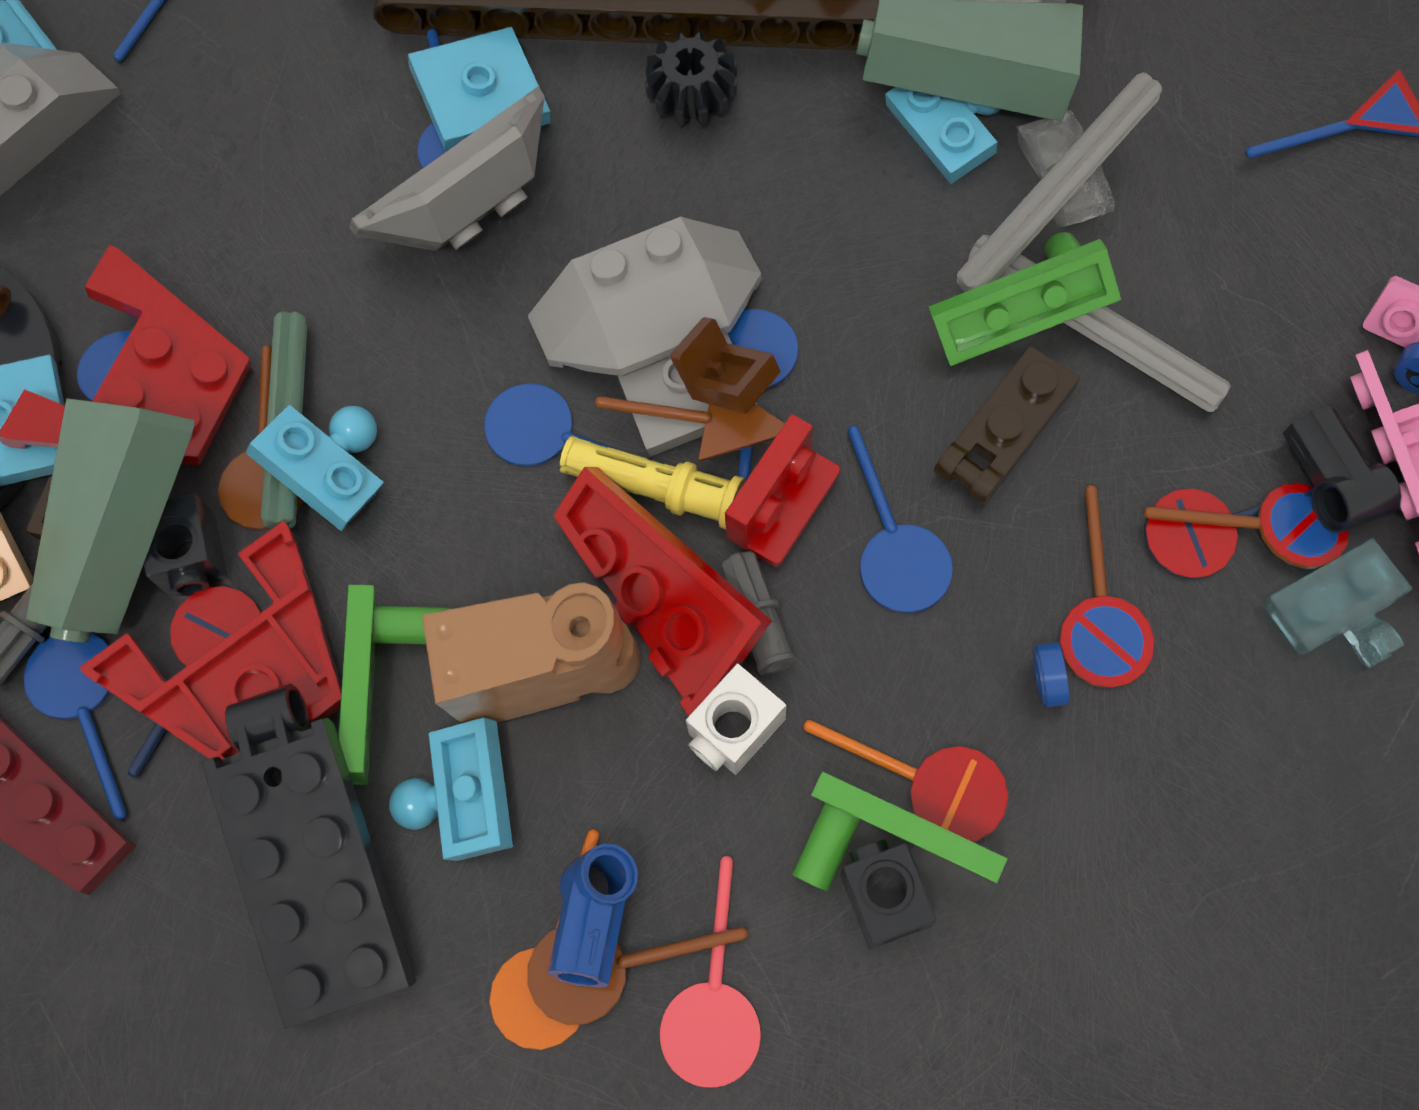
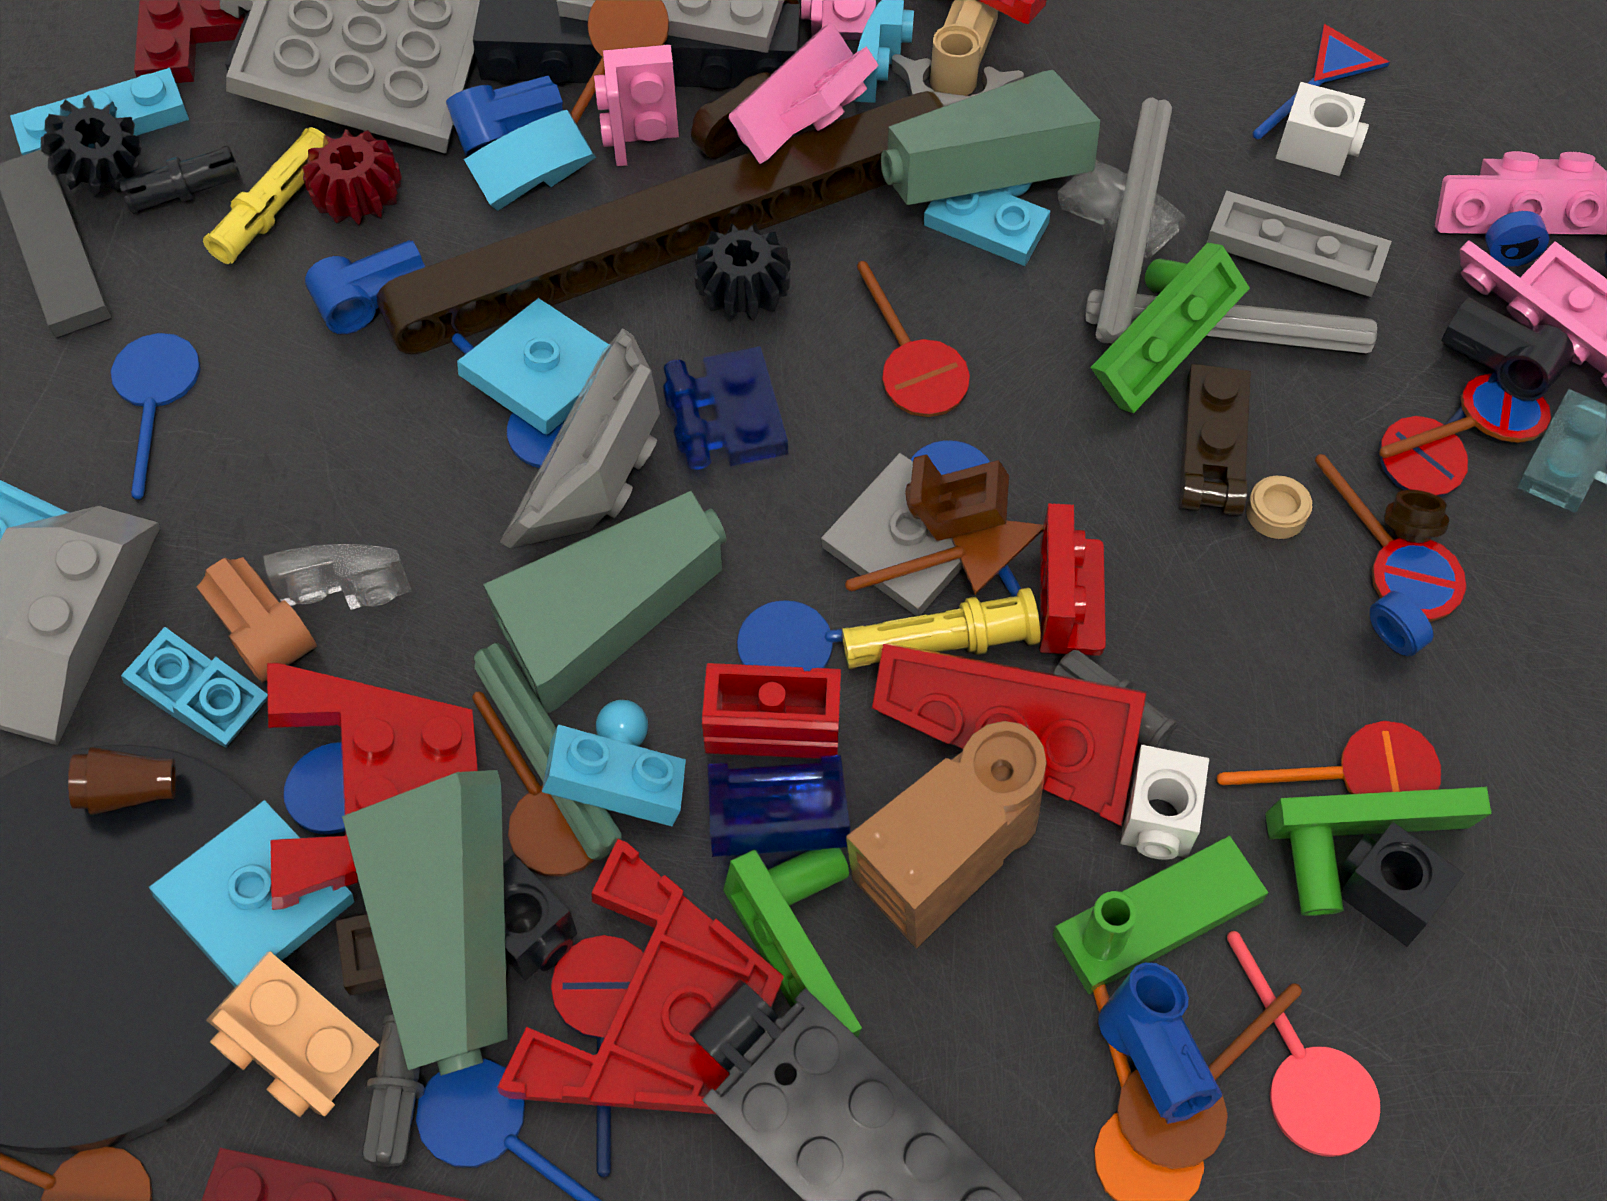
camera: 35 degrees left, 10 degrees down
(63, 235) = (194, 688): none -> medium azure slope
(136, 211) = (257, 622): none -> nougat piece
(225, 199) = (363, 572): none -> clear slope
(401, 312) = (603, 594): none -> sand green slope
(415, 567) = (778, 807): none -> clear blue plate
(463, 477) = (771, 711): none -> red brick
(465, 792) = (958, 1000): medium azure plate -> none
(622, 199) = (744, 407): none -> clear blue plate
(644, 296) = (826, 481): light grey wedge -> none
(676, 809) = (1159, 914): none -> bright green piece
(794, 243) = (920, 374): none -> red piece
(903, 564) = (1203, 598): blue piece -> none
(1023, 514) = (1279, 507): none -> tan tile
(1138, 585) = (1417, 516): none -> dark brown plate
(1211, 277) = (1299, 243): none -> light grey plate
(1309, 155) = (1322, 129): none -> white brick

